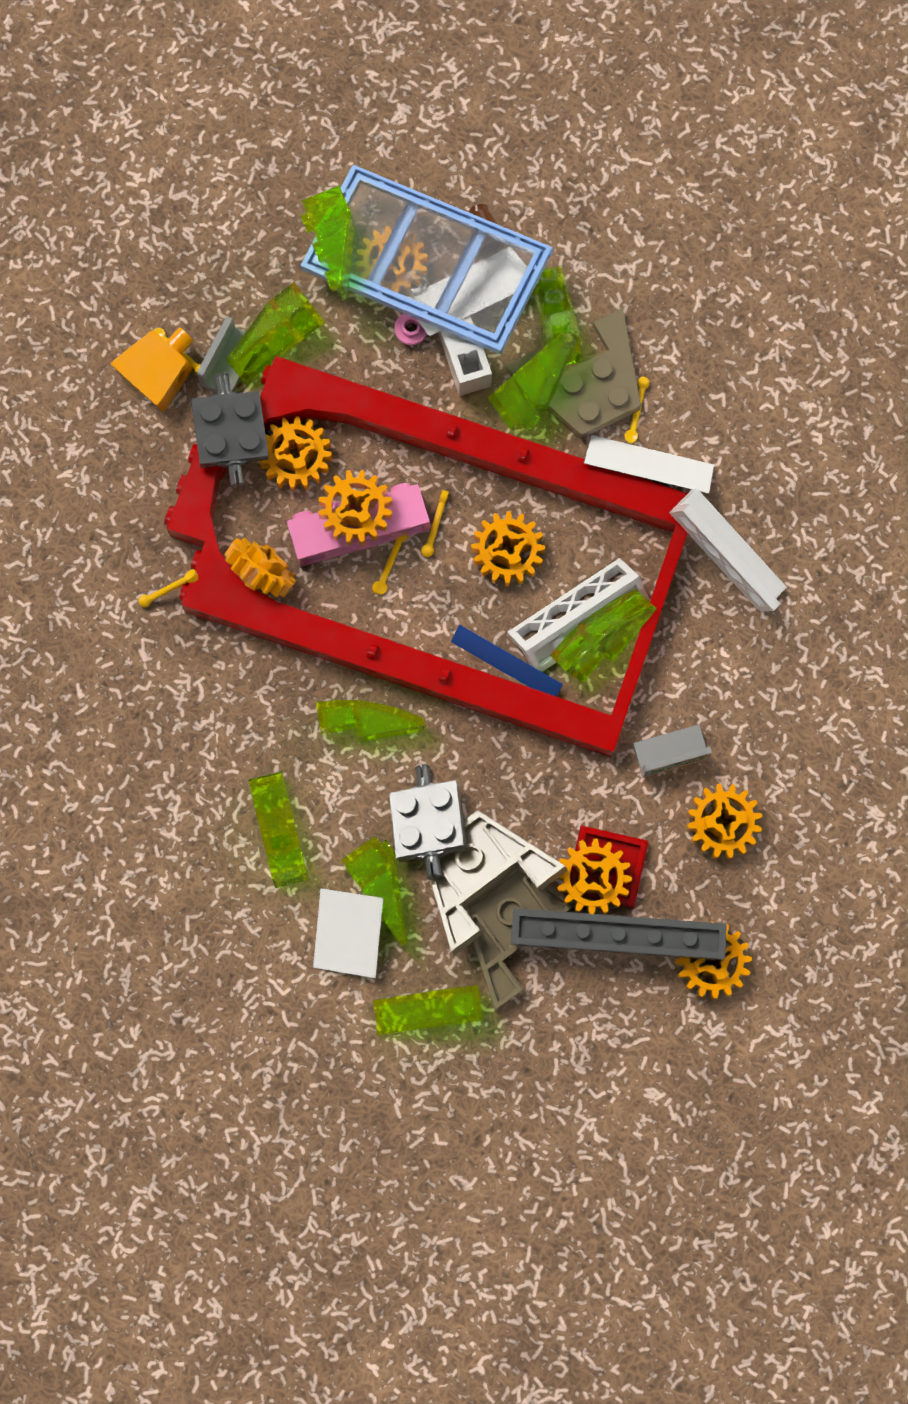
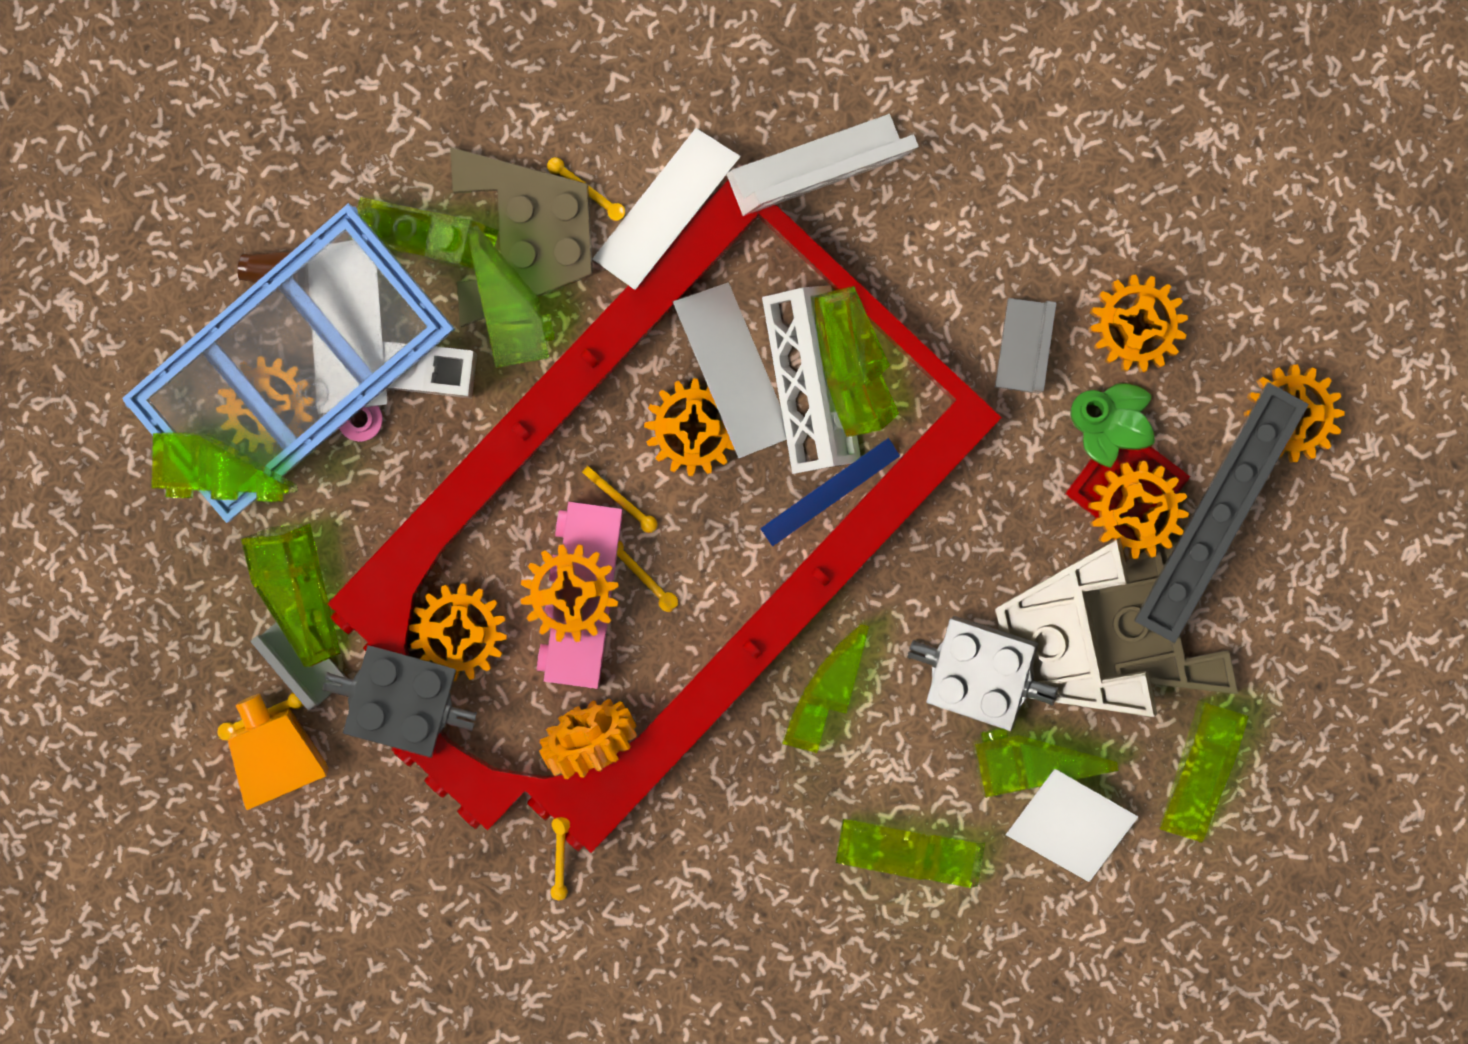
camera: 60 degrees left, 10 degrees up
(560, 556) = (732, 369): none -> white sticker
(647, 839) = (1119, 424): none -> bright green plate

